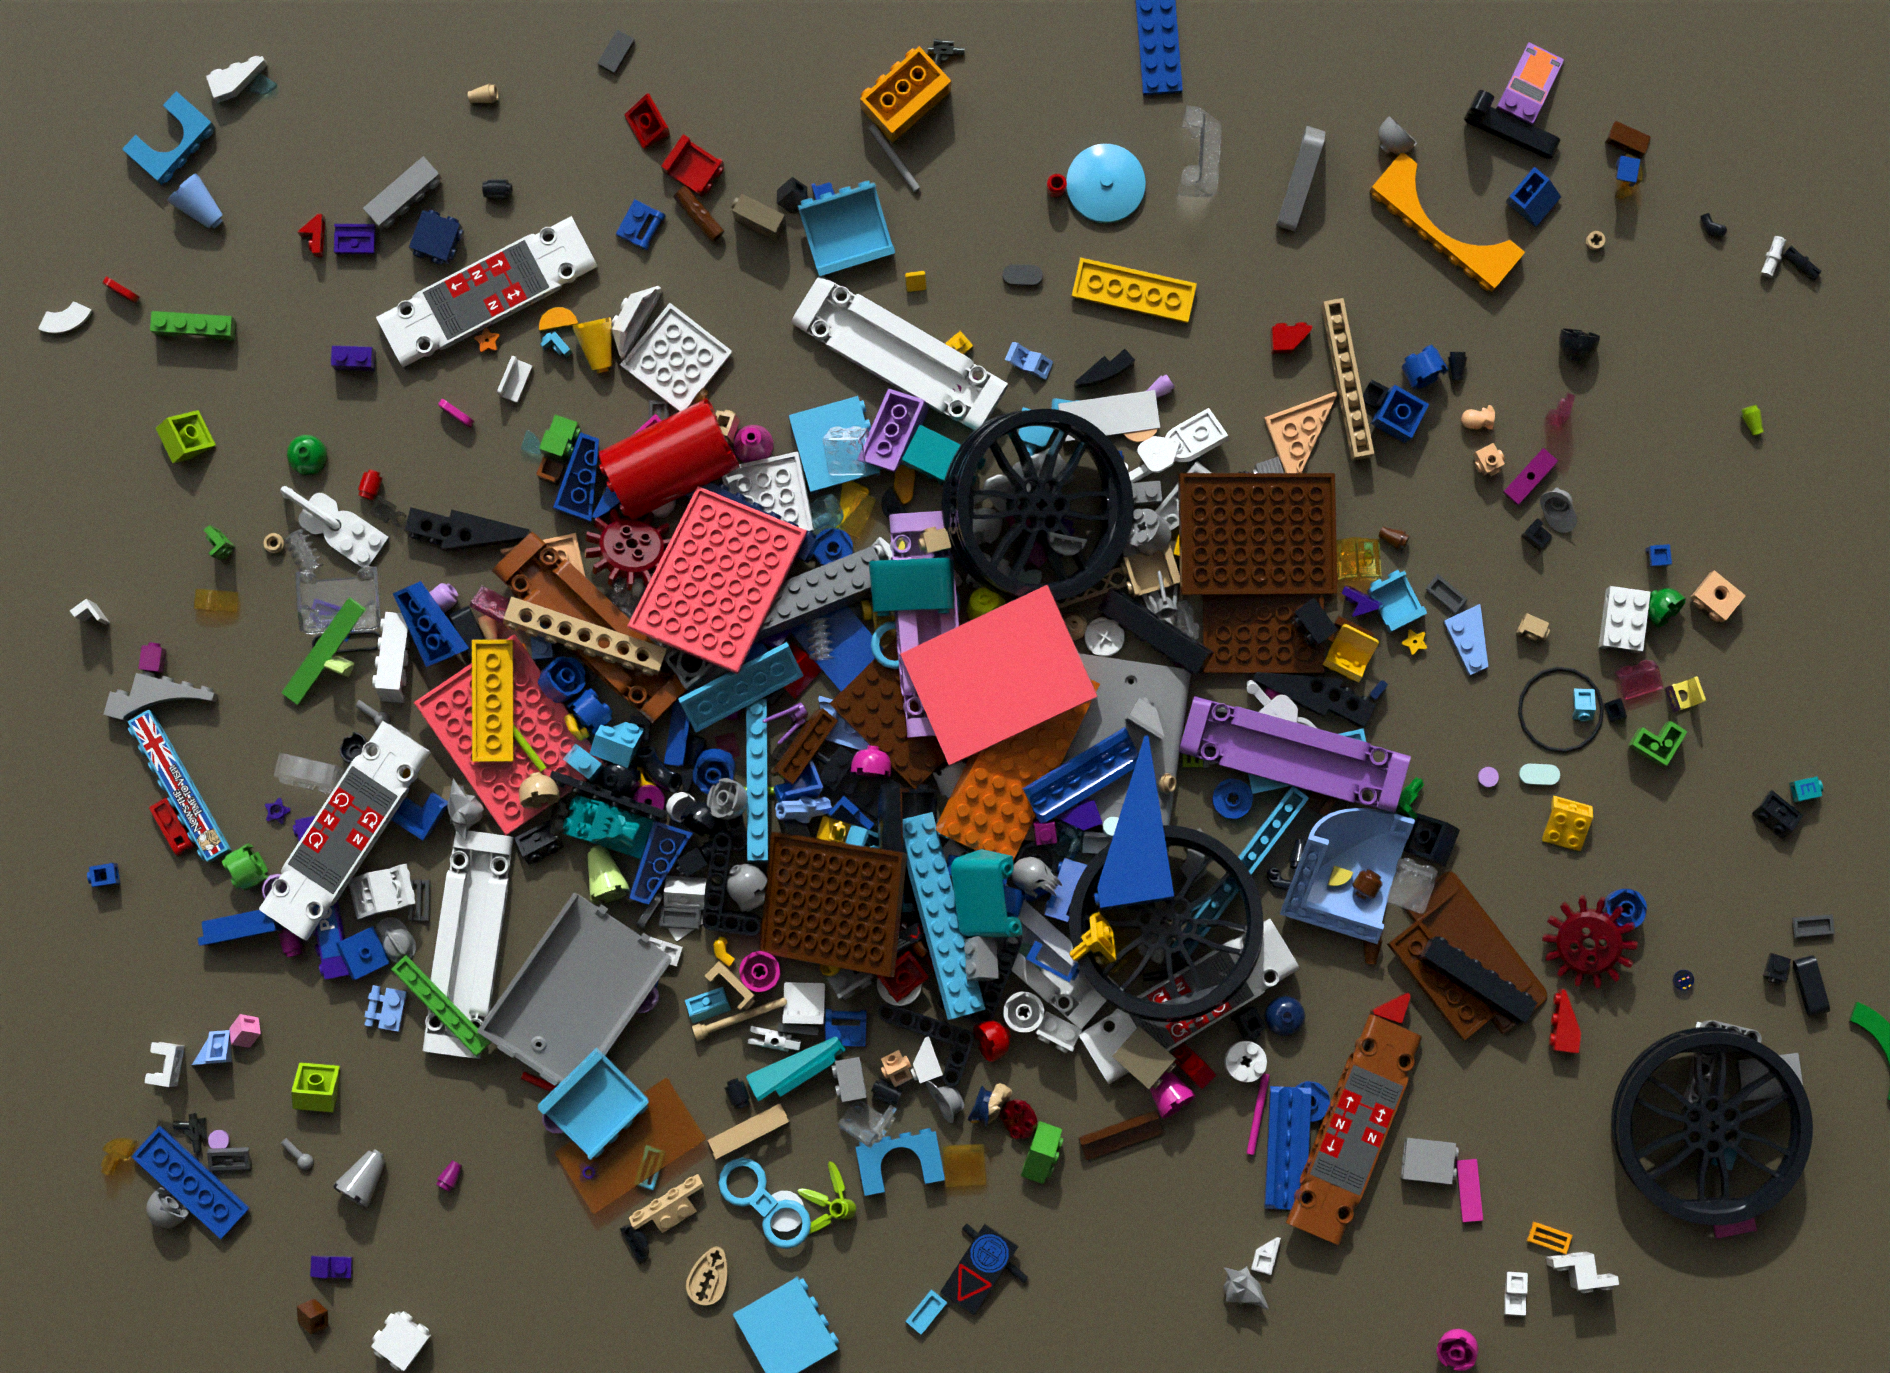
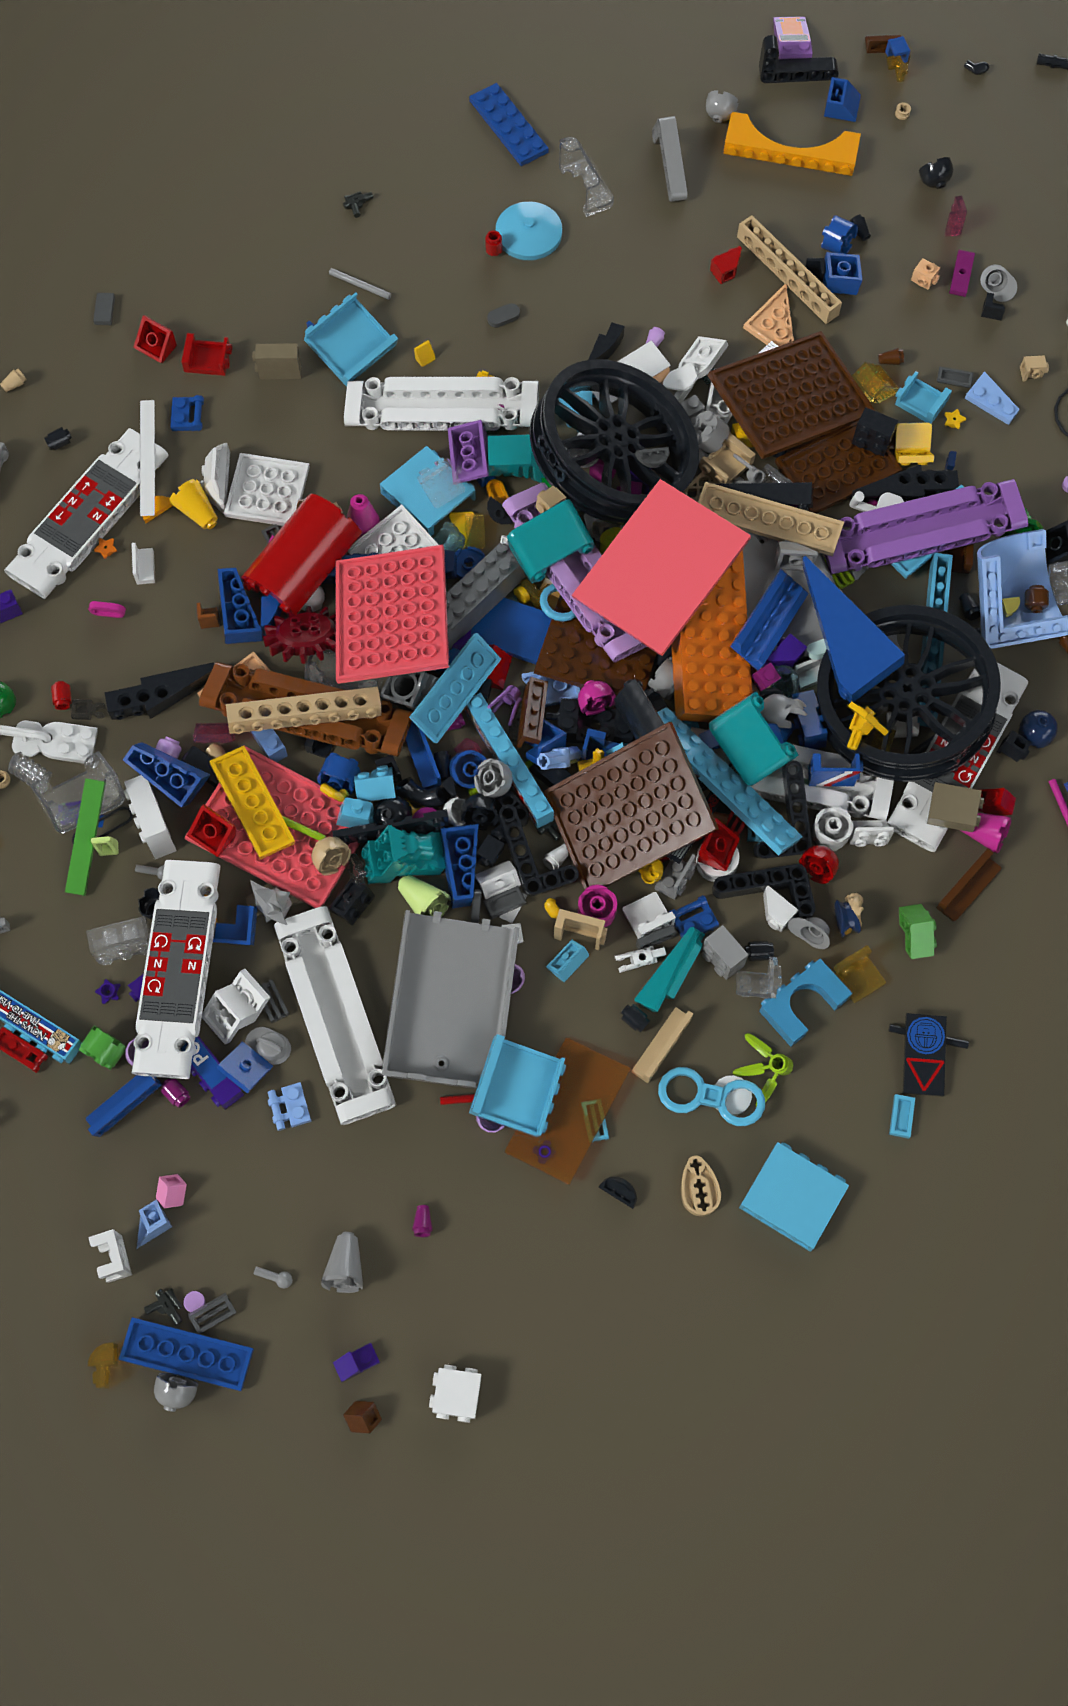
camera: 25 degrees left, 15 degrees down
(315, 1087) = (261, 1207): lime slope -> none
(436, 237) = (25, 491): dark blue brick -> none
(439, 713) = (212, 831): none -> red slope
(440, 1005) = (338, 1073): bright green tile -> none
(531, 443) = (181, 605): clear light blue tile -> none
(559, 439) = (204, 587): bright green brick -> none
(560, 347) = (165, 521): medium azure bracket -> none
(562, 679) = (302, 759): blue brick -> none
(573, 263) = (147, 458): none -> white sticker
(669, 1208) = (633, 1144): tan bracket -> none
(698, 214) = (229, 384): reddish brown axle -> none
(701, 1031) = (574, 983): tan piece -> none
(744, 881) = (544, 840): light grey cylinder -> none
(791, 194) = (295, 335): black panel -> none
(819, 639) = (498, 628): clear piece -> none
(896, 1064) = (756, 925): light nougat brick -> none
(907, 106) = (344, 233): light orange brick -> none
(981, 959) = (776, 795): light grey brick -> none
(1019, 1118) = (873, 909): dark red plate -> none
(1029, 361) = (544, 369): light blue slope -> none
(1134, 290) = (593, 286): yellow plate -> none
(1146, 665) = (773, 518): none -> tan plate
(1222, 793) = (895, 582): blue plate -> none
(1255, 1067) = (1031, 776): white brick -> none
(1365, 602) = (901, 406): dark purple slope -> none
(1476, 419) = (898, 254): light nougat animal -> none
(1773, 256) = (1031, 66): white pin -> none

